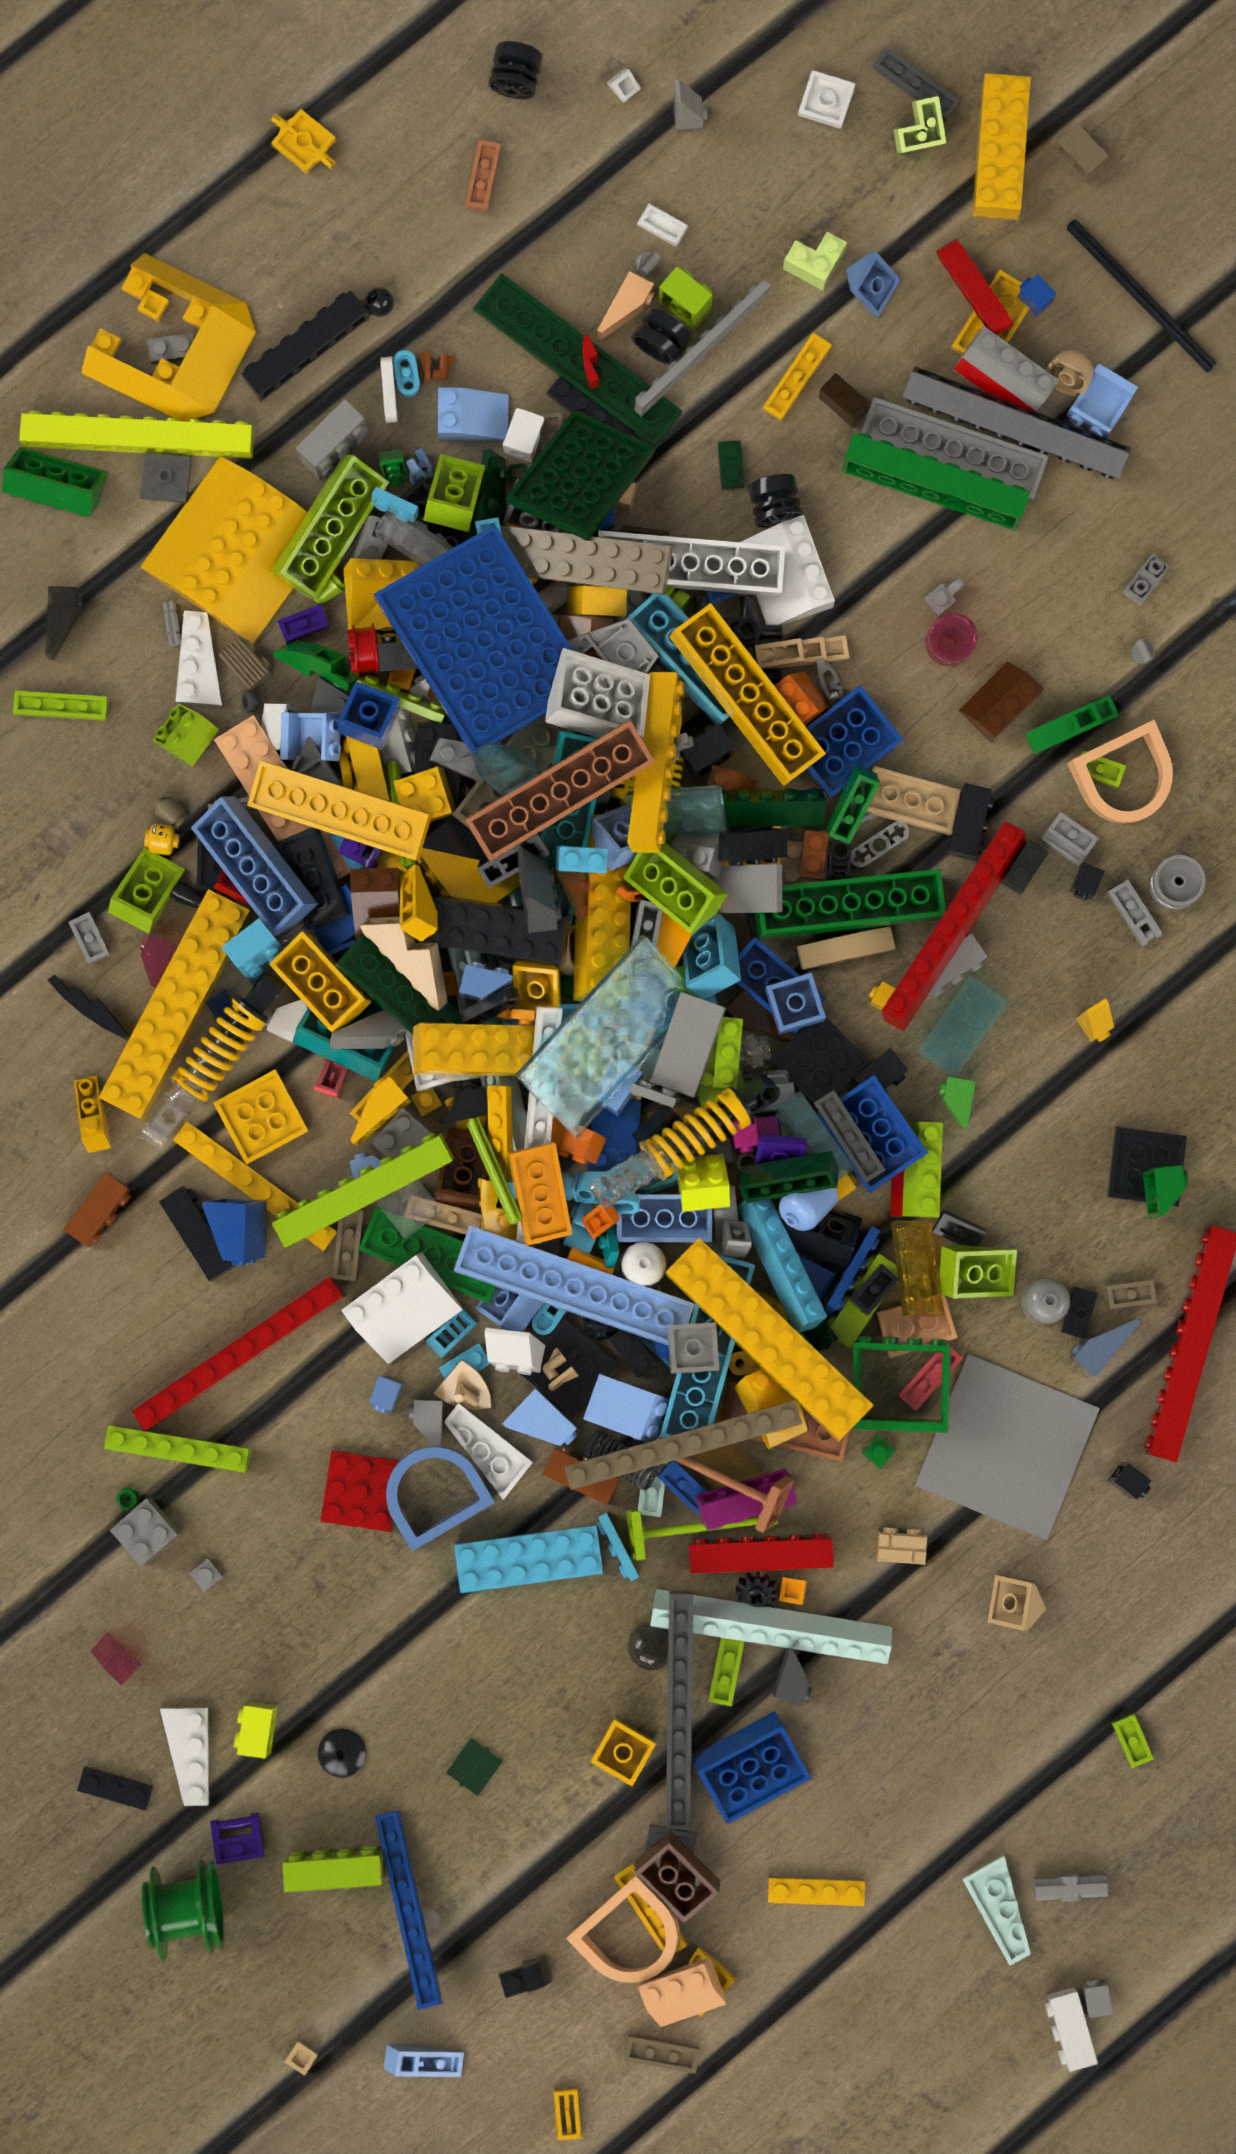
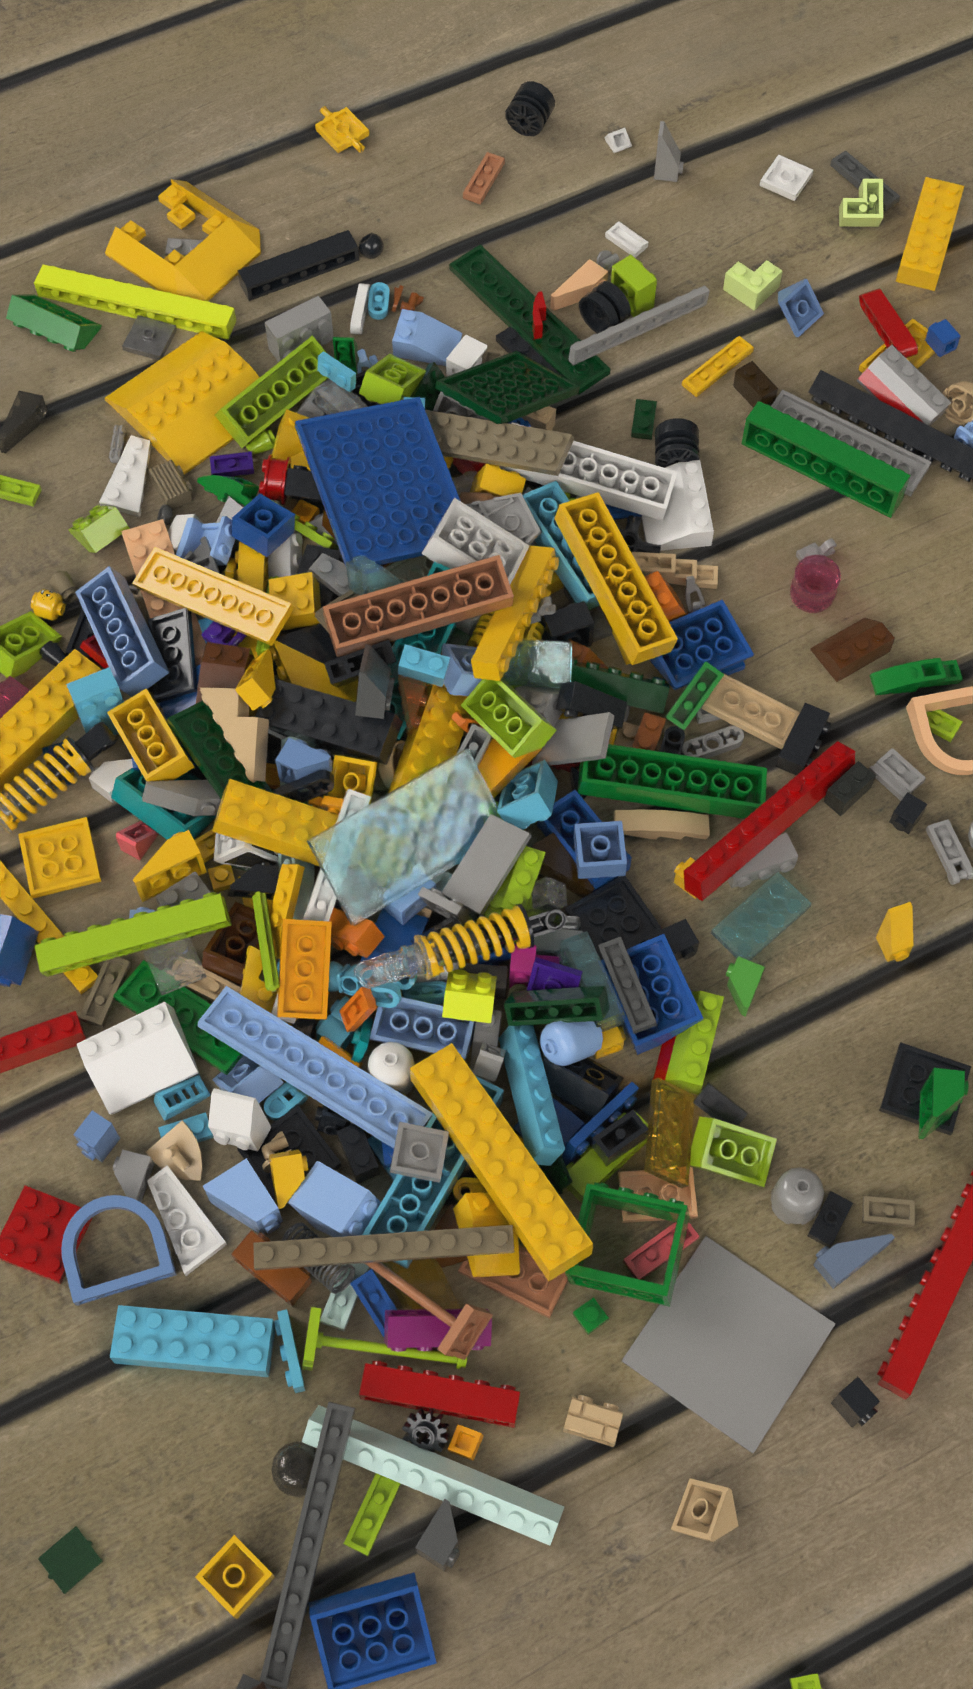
camera: 10 degrees right, 20 degrees down
(575, 1392) = (287, 1174): none -> yellow slope

